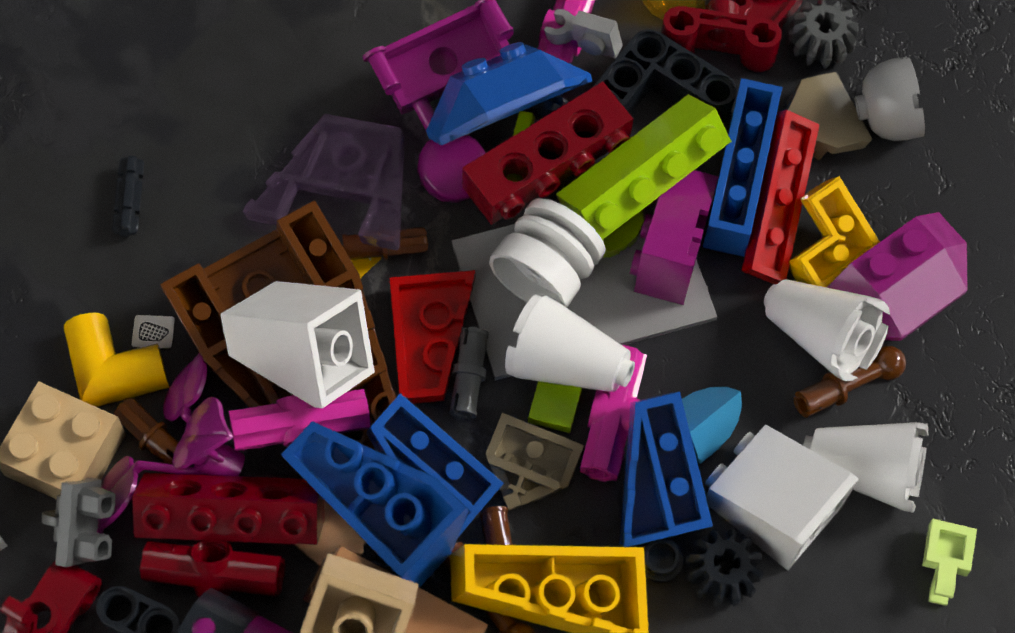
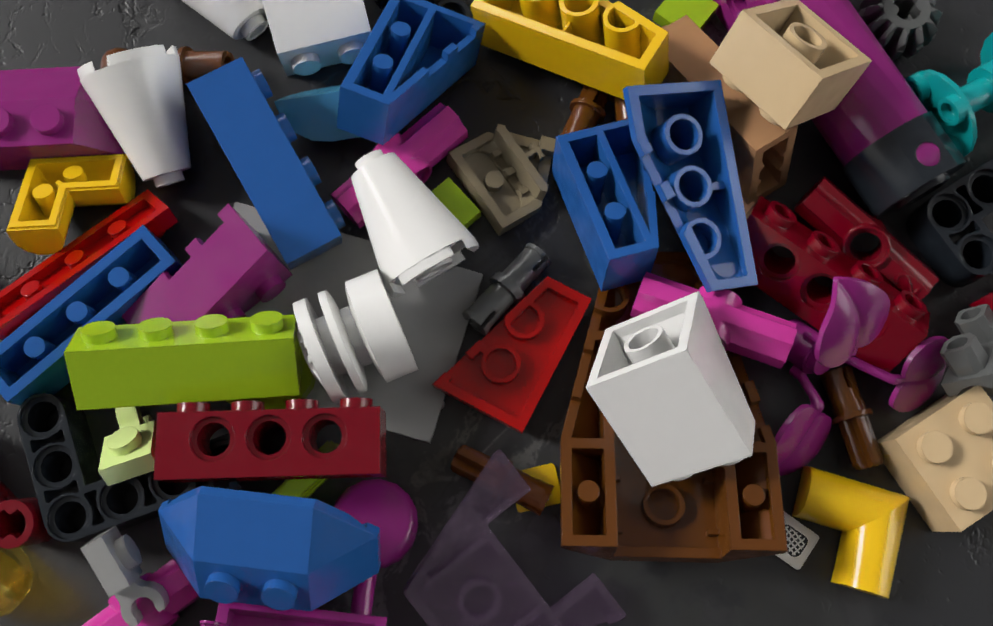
camera: 145 degrees left, 10 degrees up
(642, 101) = (130, 449): none -> yellowish green plate
(708, 340) = (266, 162): none -> blue wedge

